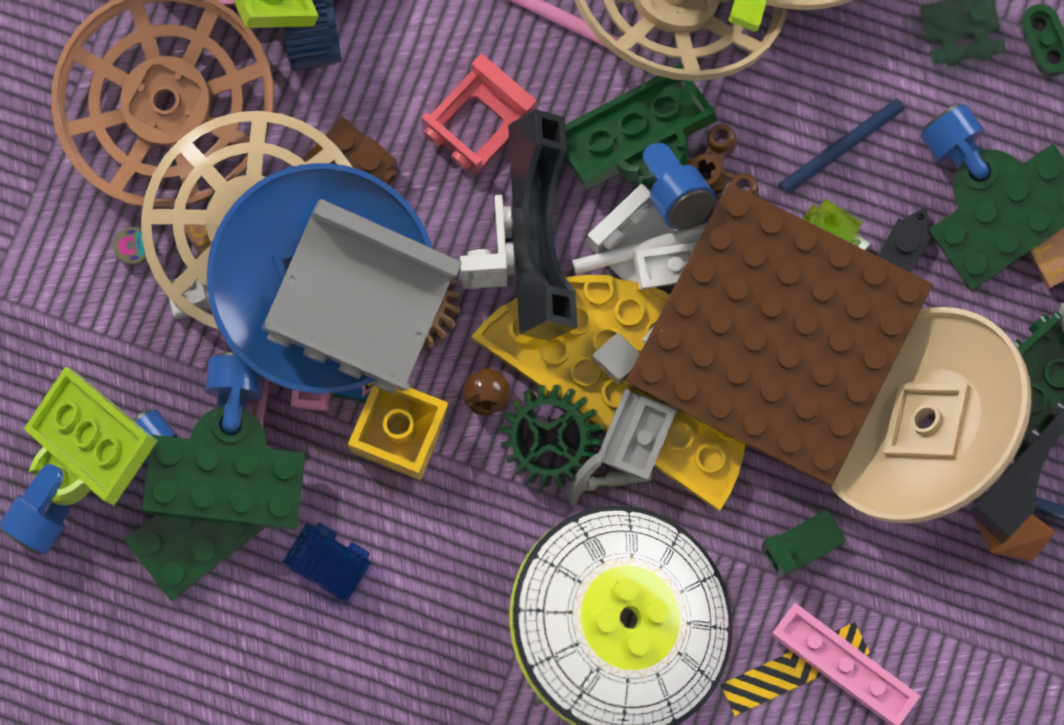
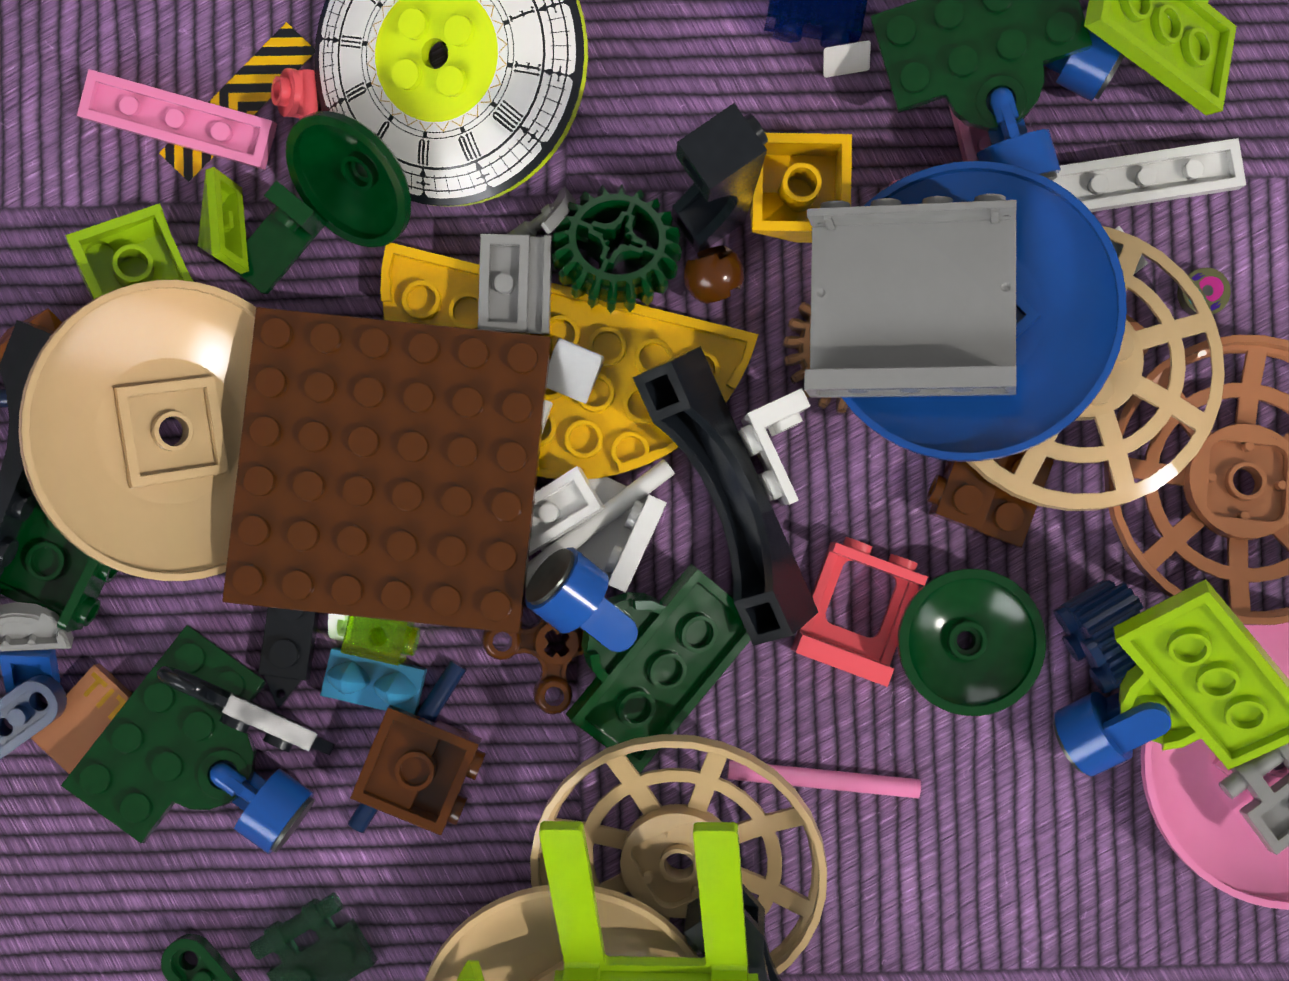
camera: 160 degrees right, 10 degrees up
(139, 342) = (1155, 175): none -> white plate
(322, 516) = (846, 59): none -> white sticker
(406, 39) = (1004, 648): none -> dark green dish
(466, 419) = (725, 167): none -> black arch
(729, 556) = (349, 178): none -> dark green dish
(747, 652) = (295, 93): none -> coral plate
(837, 122) = (418, 770): none -> reddish brown plate
(840, 569) = (223, 221): none -> lime slope
(851, 197) = (373, 682): none -> dark azure tile
(918, 563) = (127, 252): none -> lime slope
(947, 205) = (243, 713): none -> black plate

